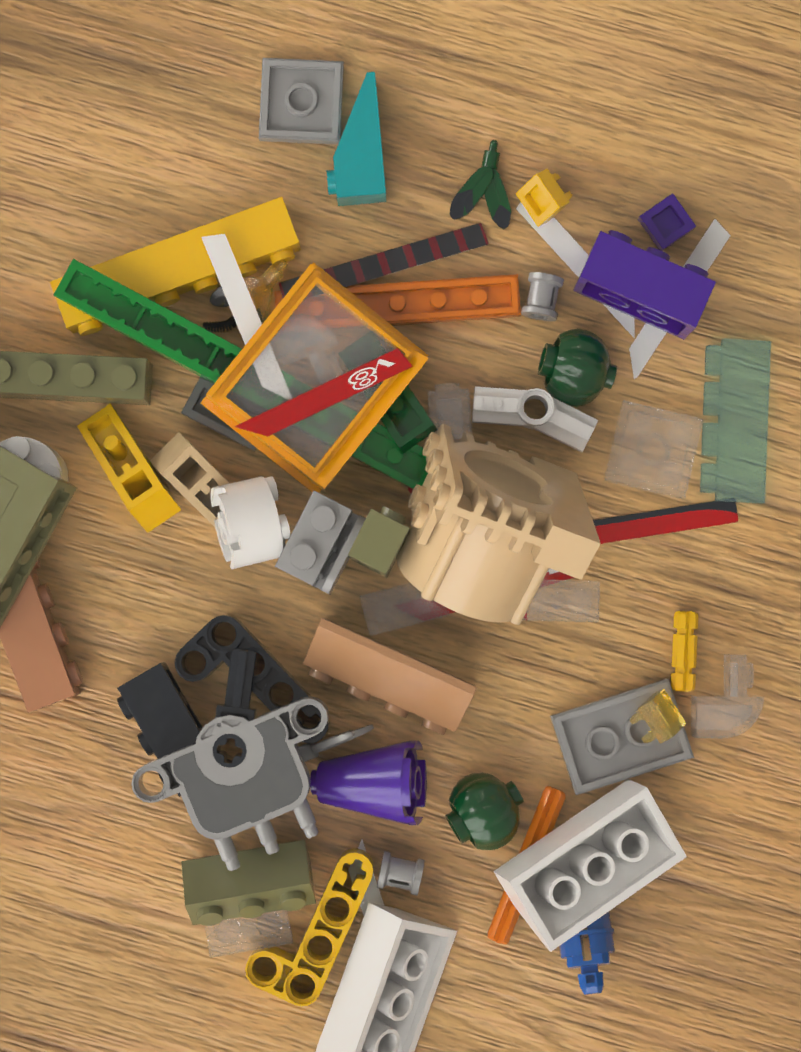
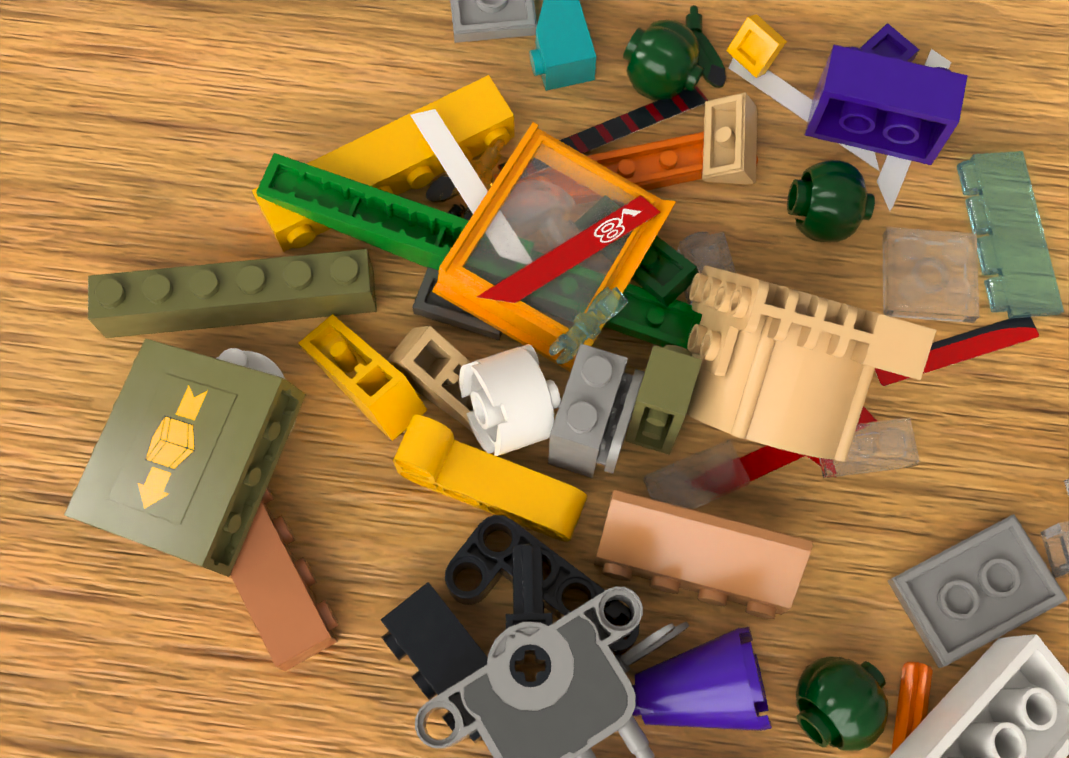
camera: 10 degrees left, 15 degrees down
(233, 588) = (486, 481): none -> yellow beam
(342, 455) = (587, 324): none -> clear light blue piece
(451, 199) = (663, 60): none -> dark green plant
(497, 293) = (730, 140): none -> tan slope
(507, 408) = (822, 254): white piece -> none
(542, 296) = (777, 139): light grey bush -> none
(660, 716) = (1024, 553): clear yellow tile -> none
(684, 651) = (1023, 481): yellow axle -> none

